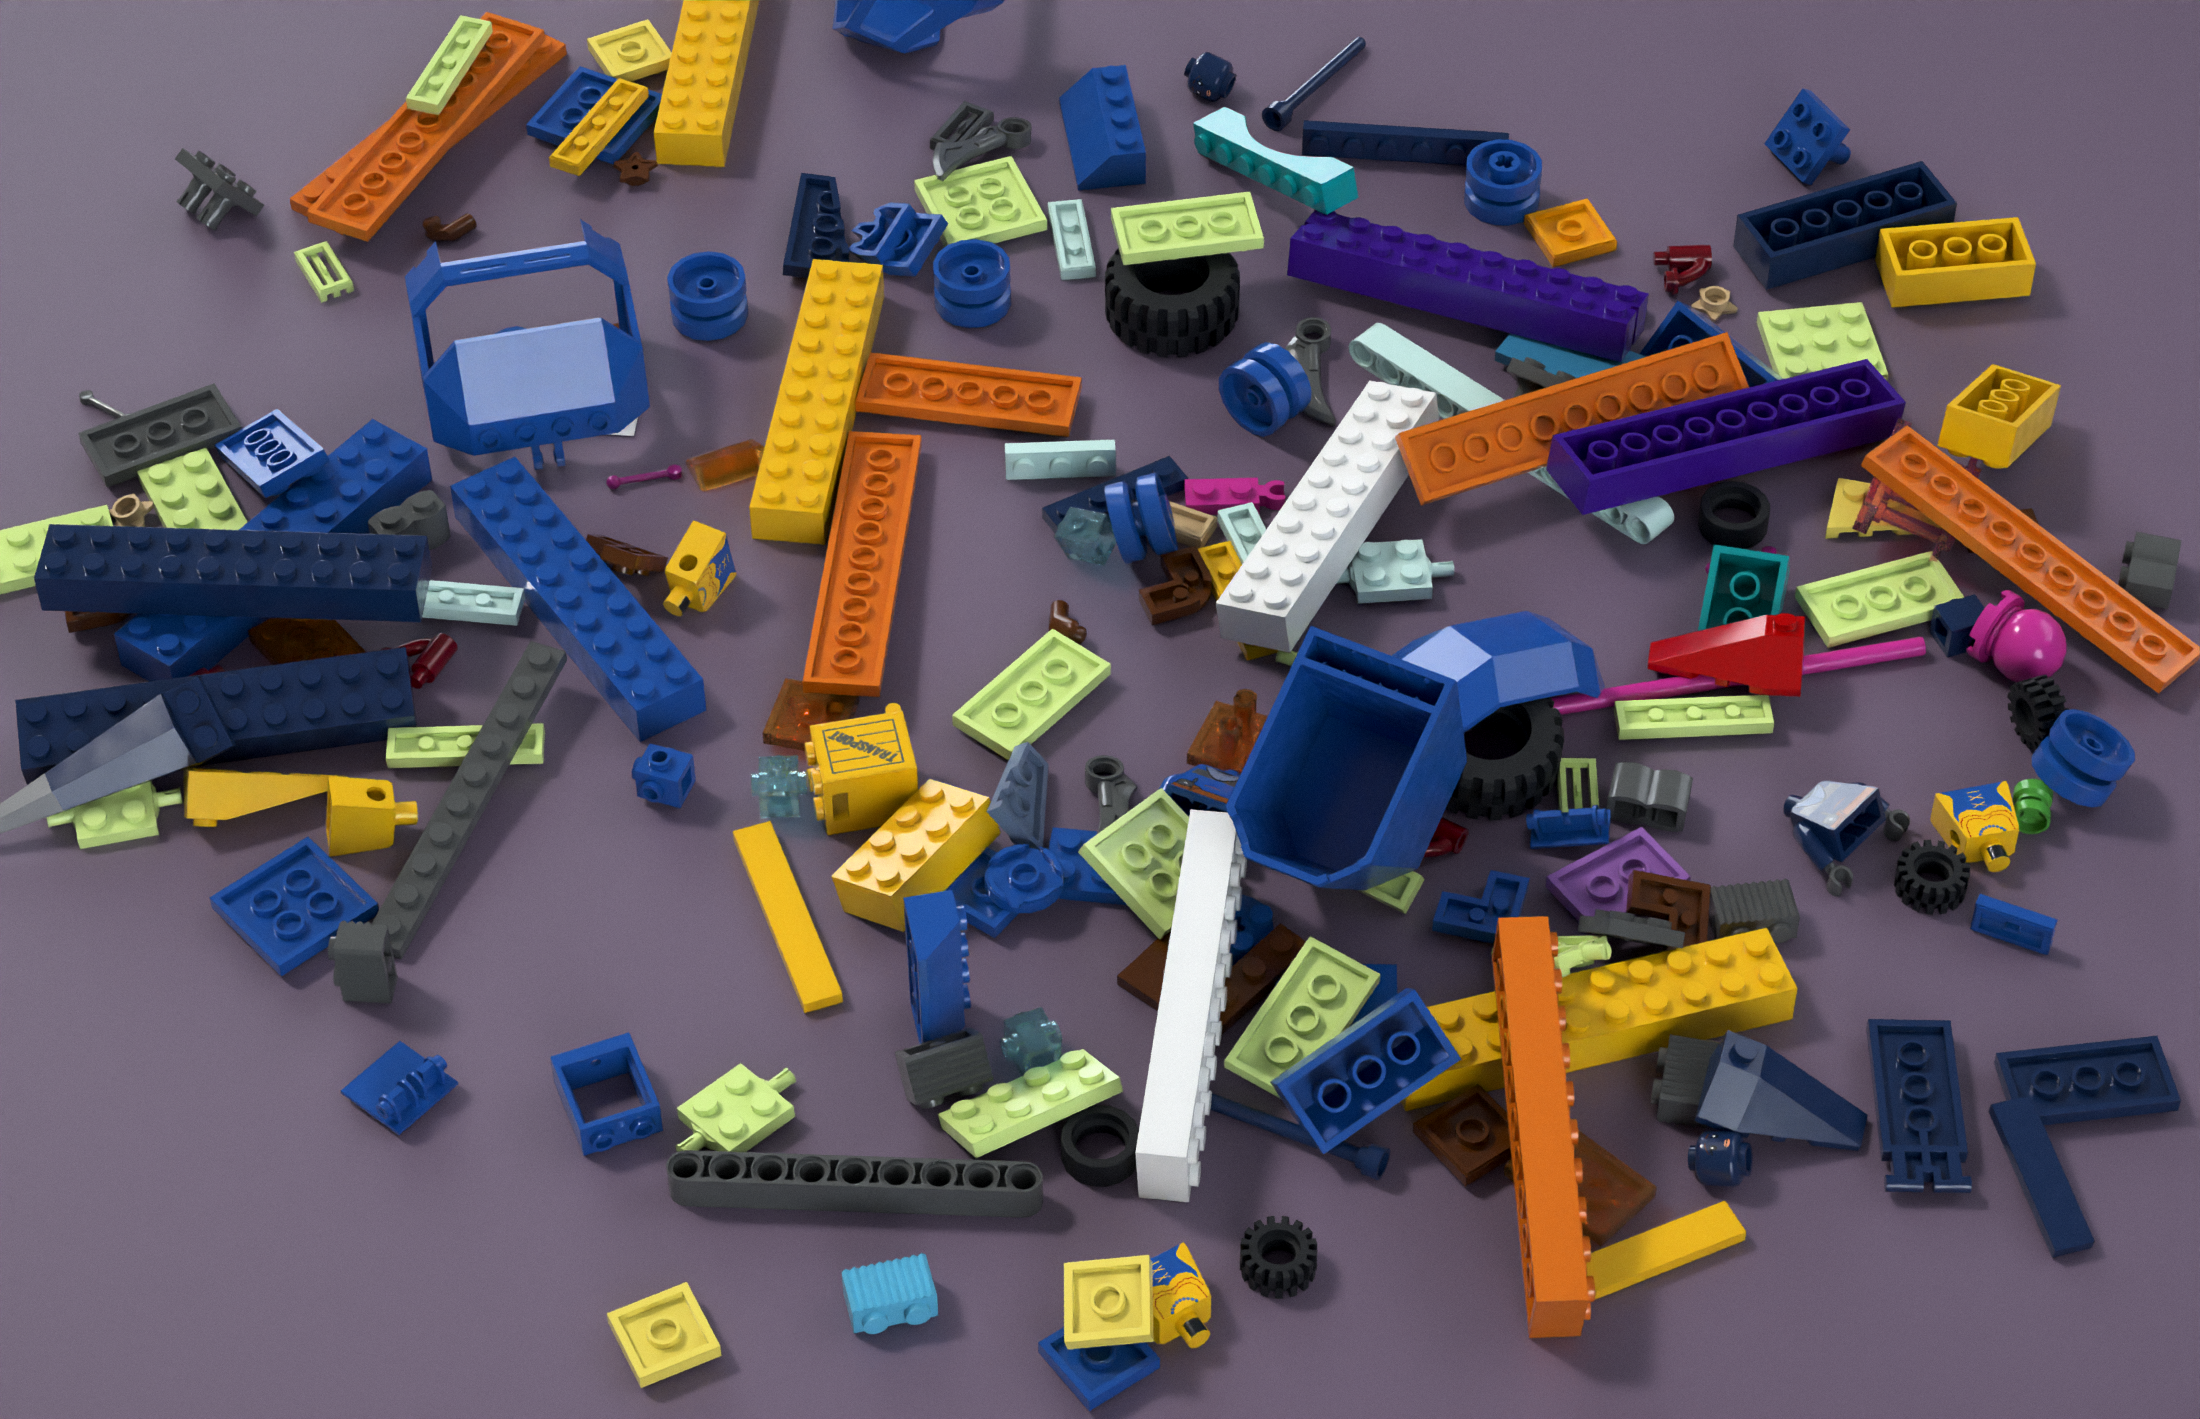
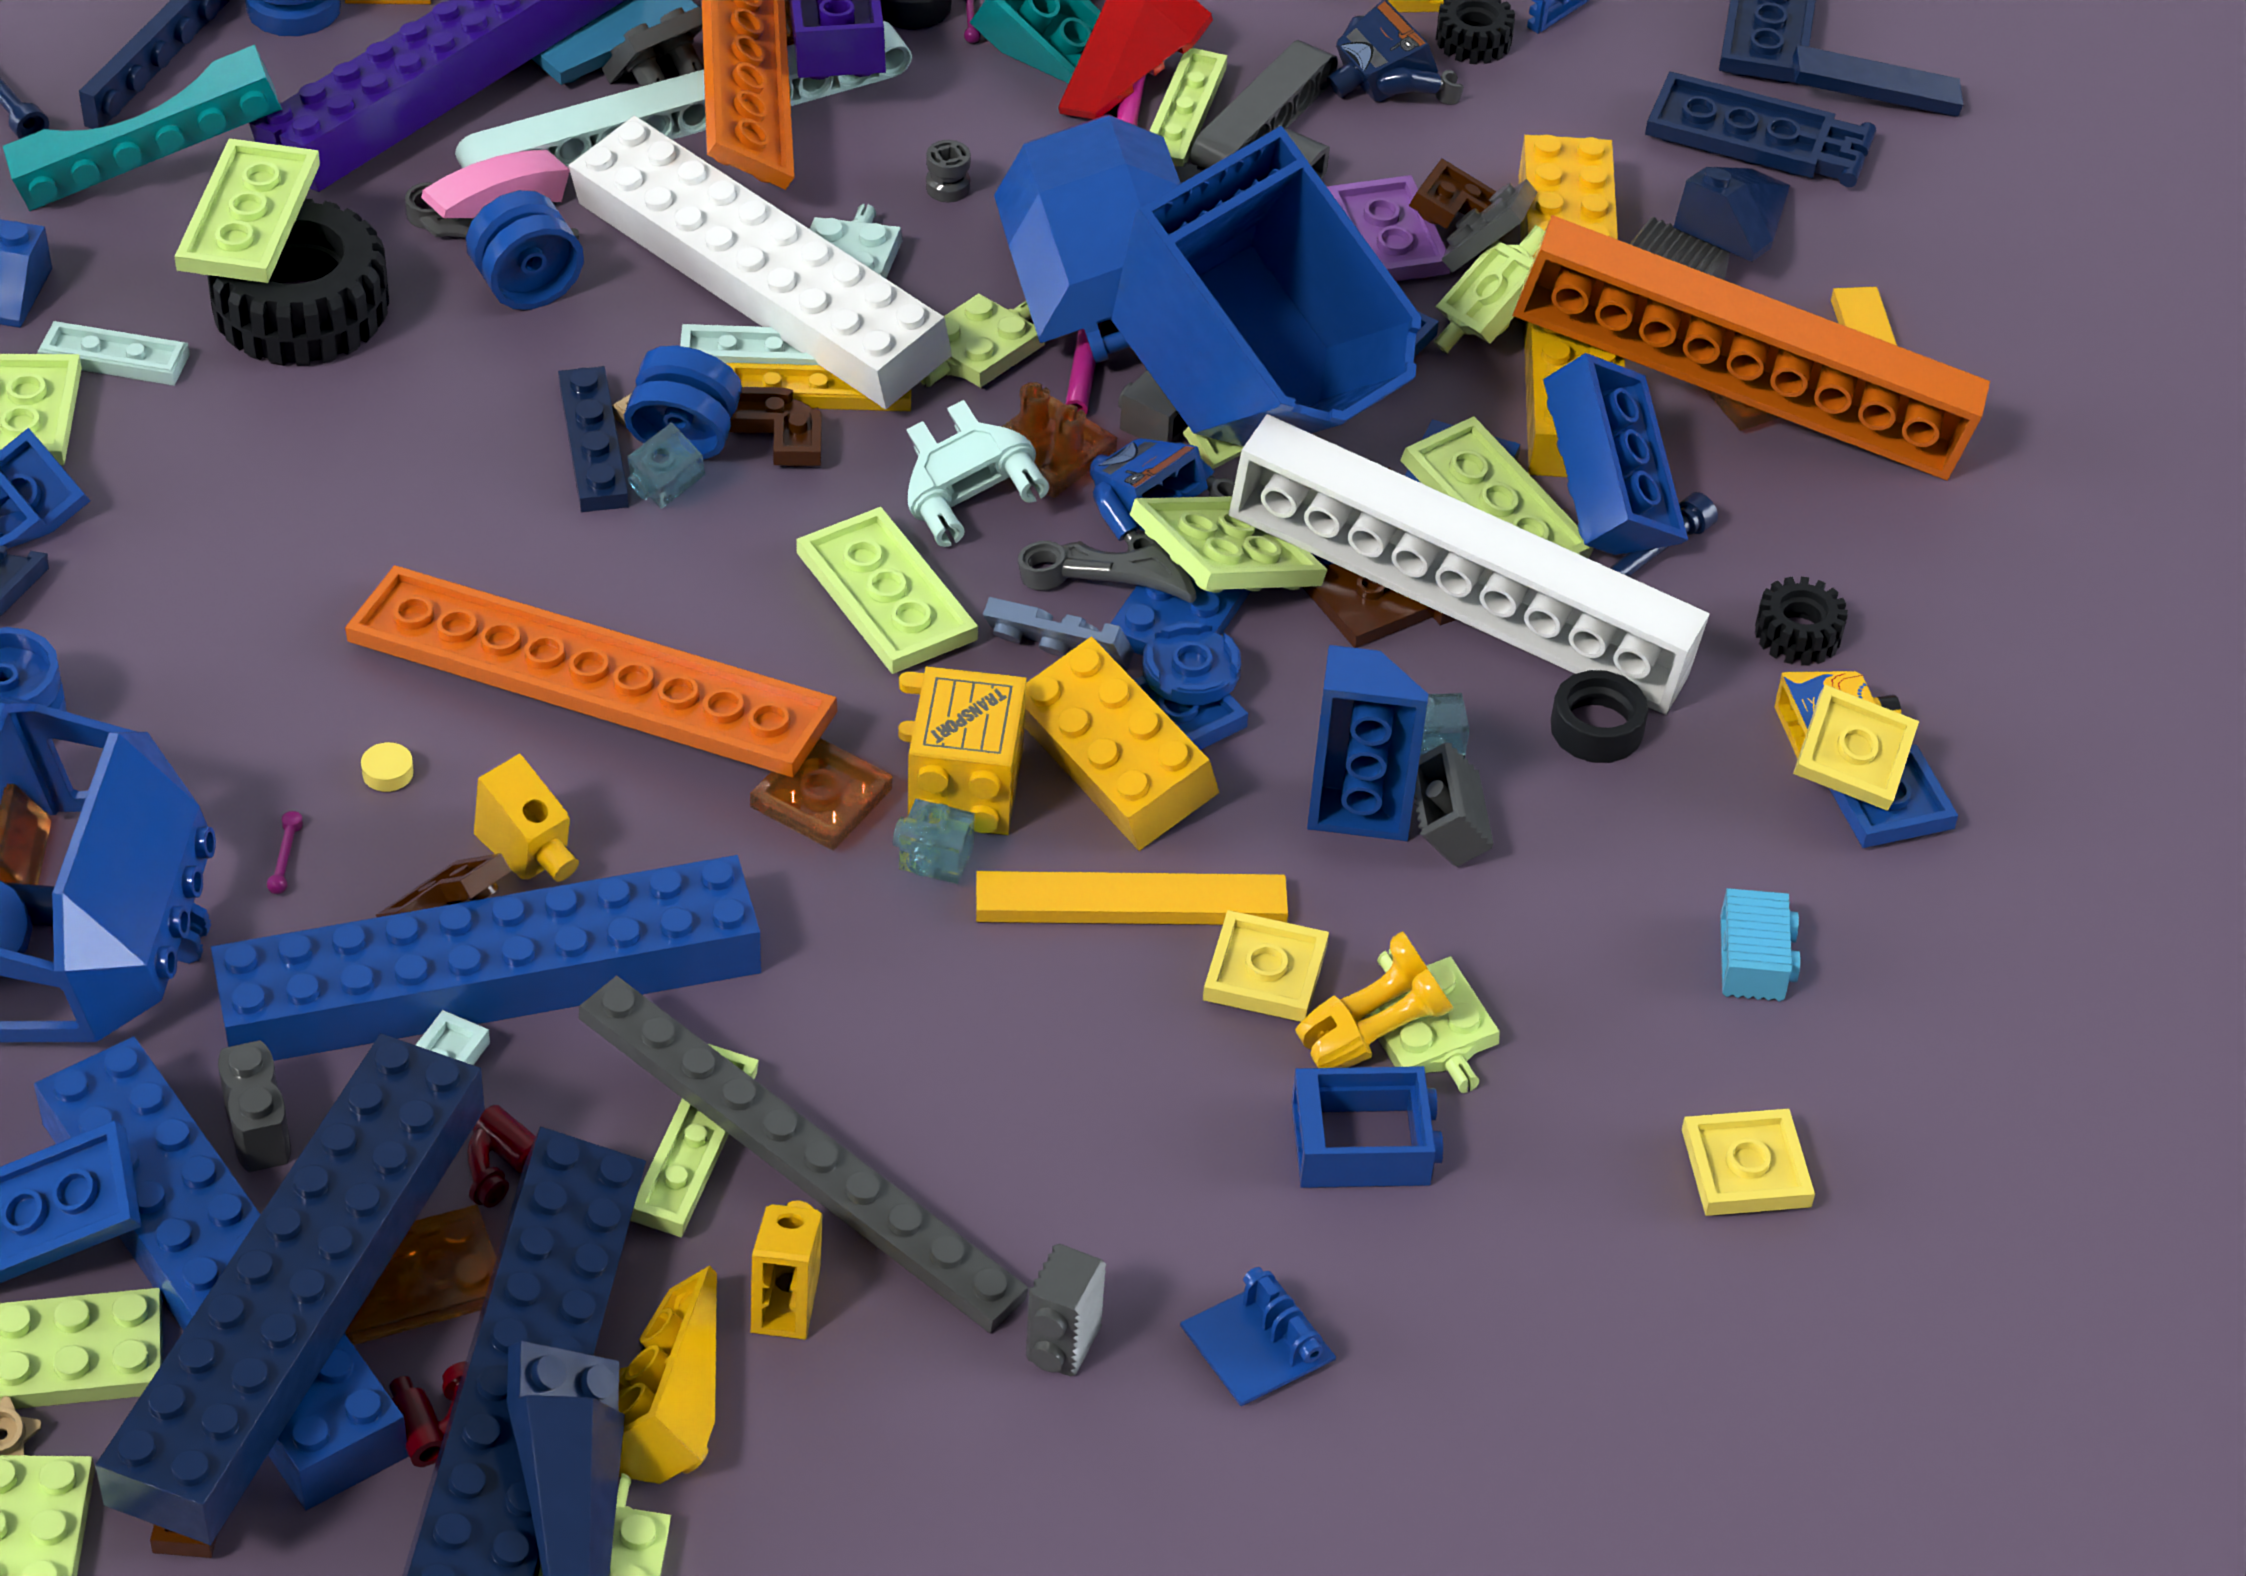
camera: 75 degrees left, 0 degrees up
(293, 905) = (897, 1385): blue plate -> none
(664, 775) = (864, 944): blue brick -> none
(718, 1074) = (1335, 1027): none -> yellow piece
(726, 464) = (311, 764): clear orange slope -> none
(737, 498) = (387, 767): none -> light yellow tile
(745, 1004) = (1266, 966): none -> light yellow plate
(817, 402) = (269, 640): yellow brick -> none
(855, 1183) = (1581, 939): dark grey beam -> none
(969, 394) = (338, 511): orange plate -> none
(972, 283) = (158, 444): blue wheel -> none
(1029, 1102) = (1527, 753): yellowish green plate -> none
(1060, 459) = (512, 459): light aqua plate -> none
(1065, 625) = (781, 537): reddish brown arm -> none
(1170, 692) = (966, 466): none -> light aqua connector
(1222, 493) = (645, 334): dark pink plate -> none
(1337, 356) = (474, 186): none -> bright pink slope
(1467, 1134) = (1697, 433): reddish brown plate -> none
(1520, 592) = (948, 170): none -> dark grey wheel
(1720, 1158) = (1786, 270): dark blue head -> none
(1726, 764) = (1268, 102): none -> dark grey beam
(1754, 907) = (1478, 144): dark grey brick -> none

